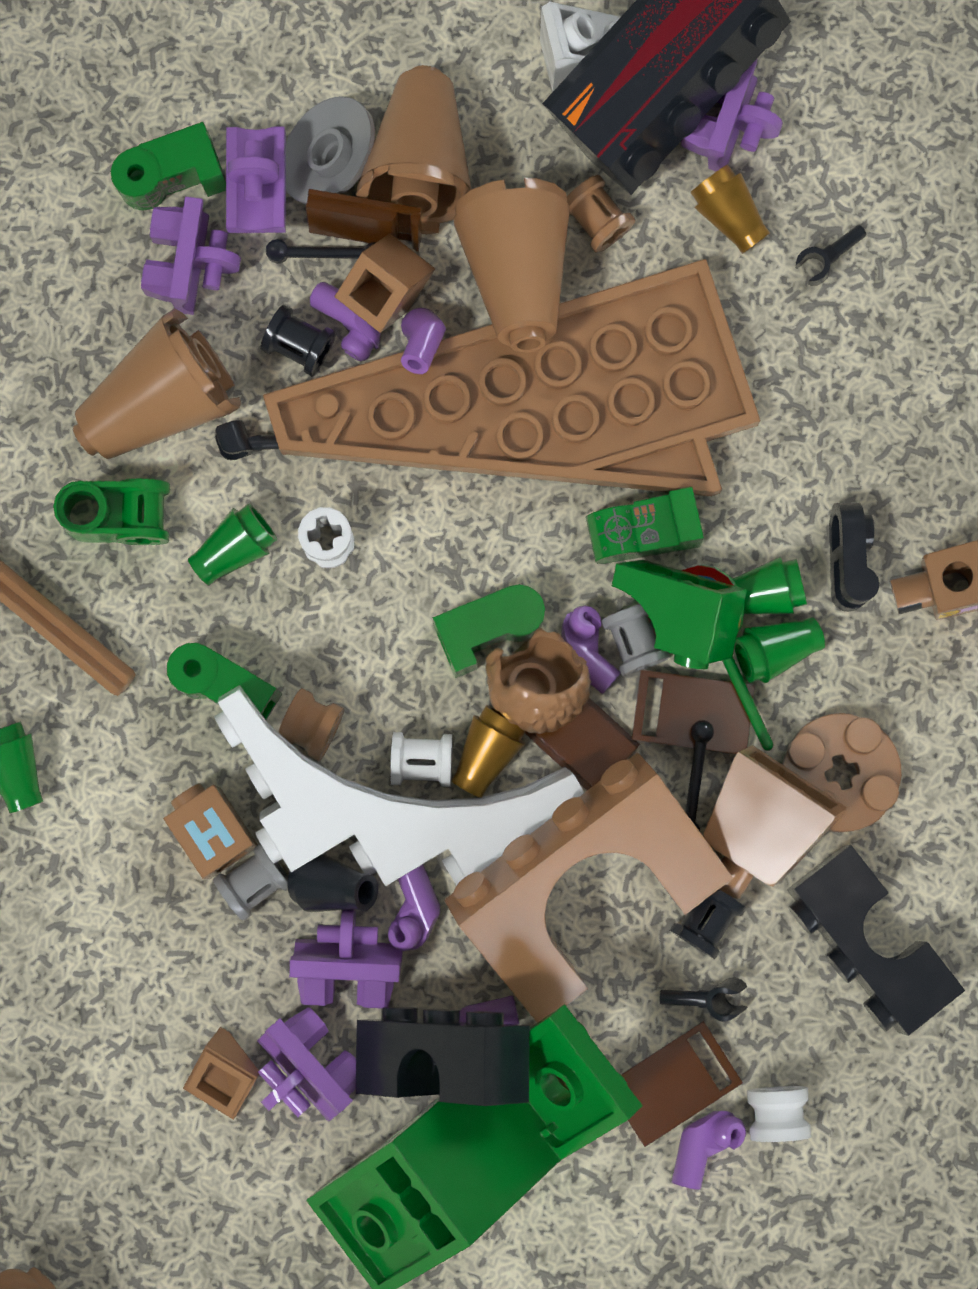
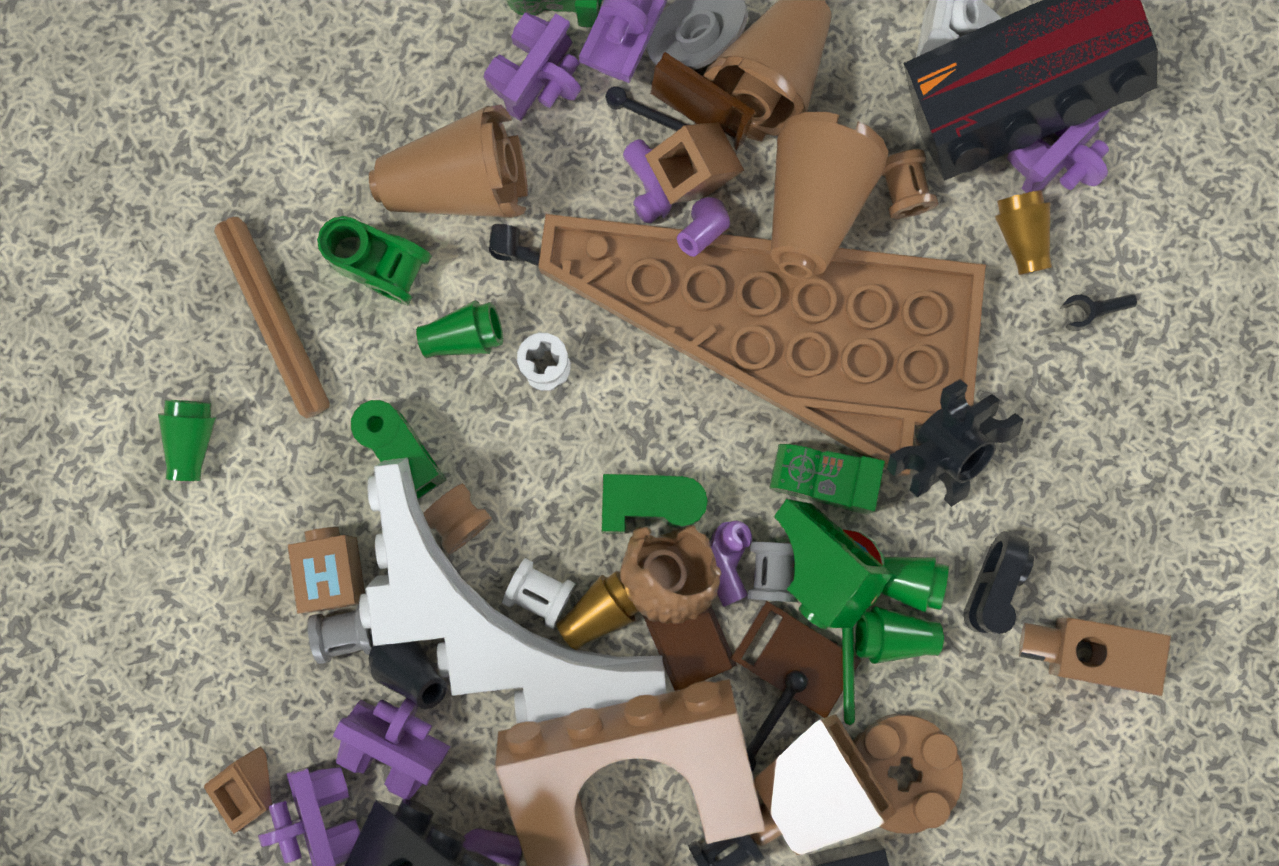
camera: 25 degrees right, 0 degrees up
(297, 340) = (597, 180): black bush -> none
(417, 913) = (471, 728): medium lavender arm -> none
(750, 441) = (954, 443): none -> black pin

